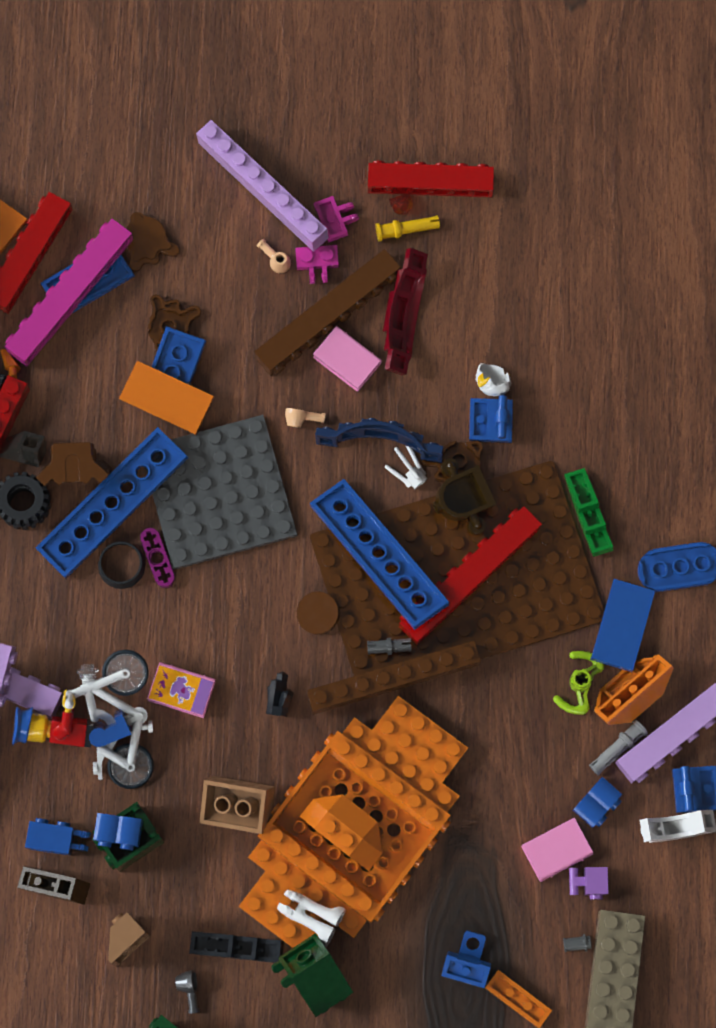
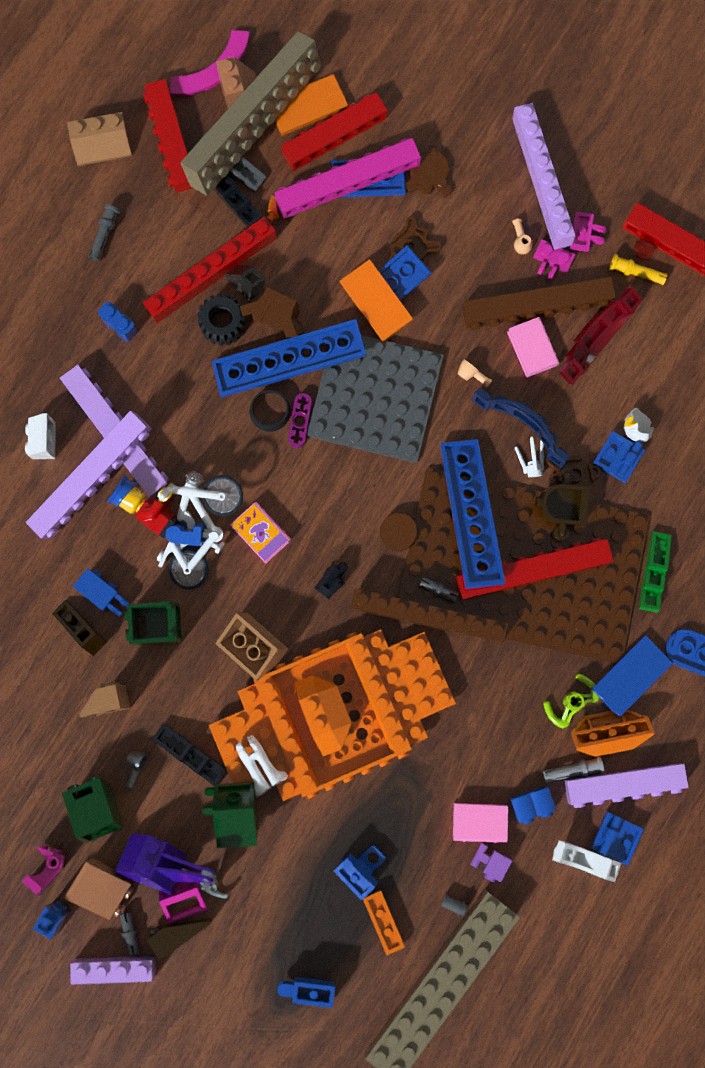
camera: 30 degrees right, 5 degrees up
(118, 830) = (145, 616): blue brick -> none

